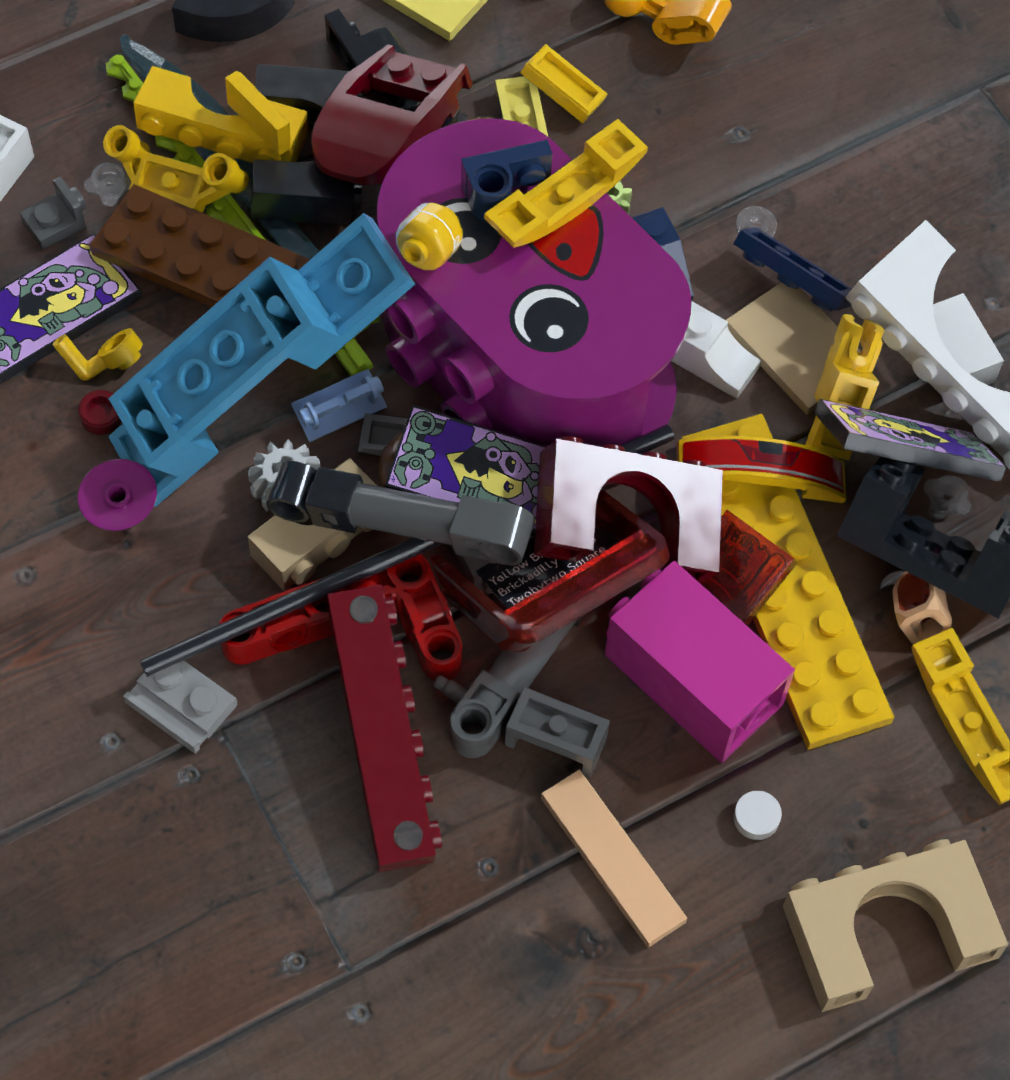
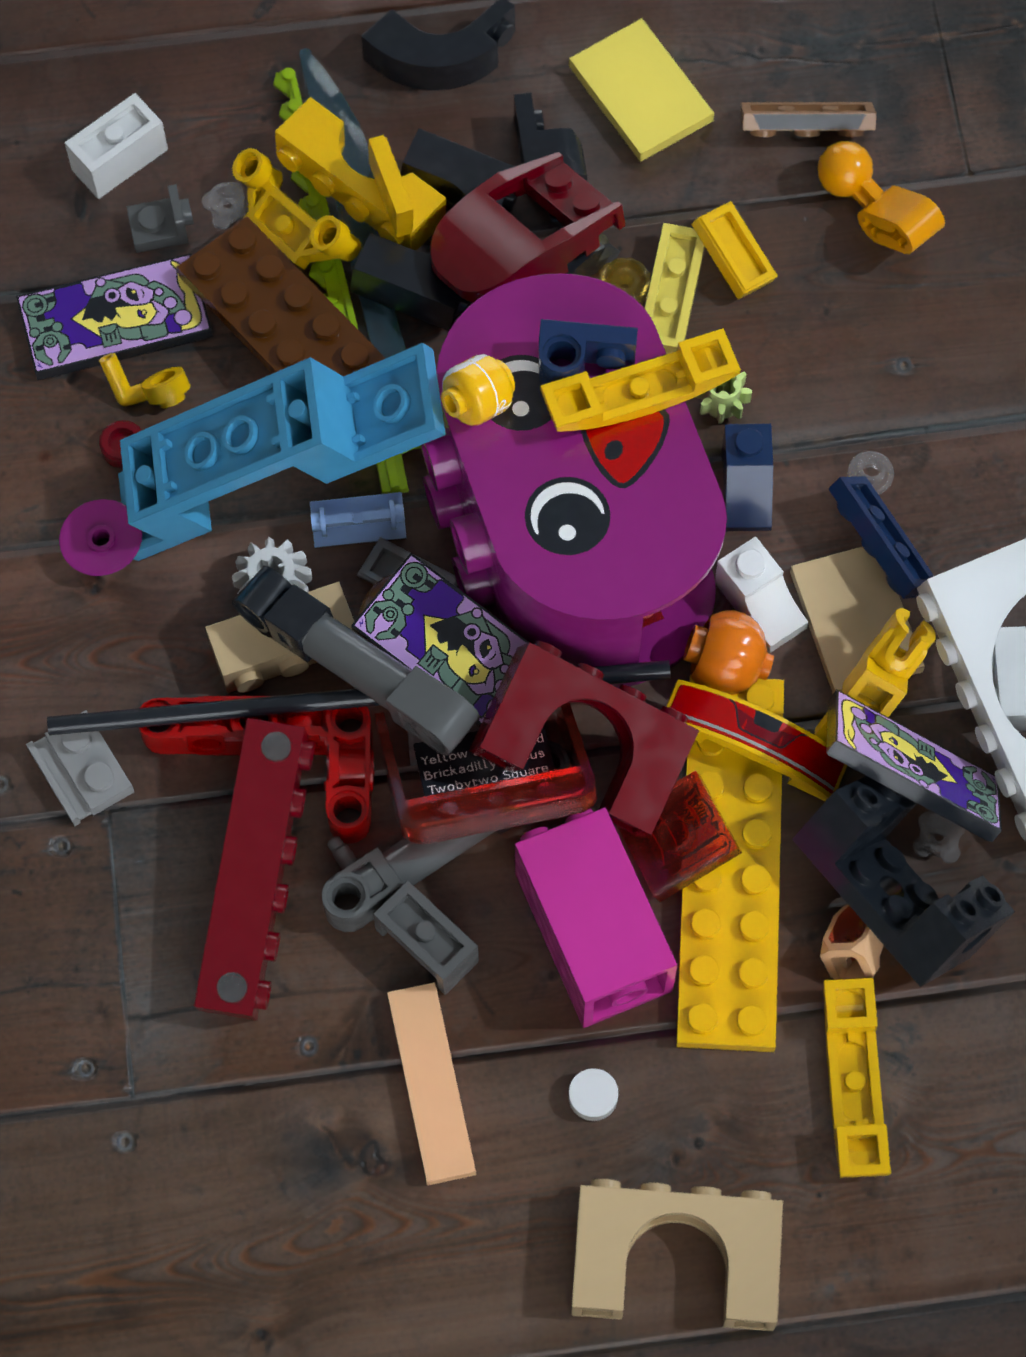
camera: 25 degrees right, 5 degrees up
(706, 405) = (728, 652): none -> orange plant

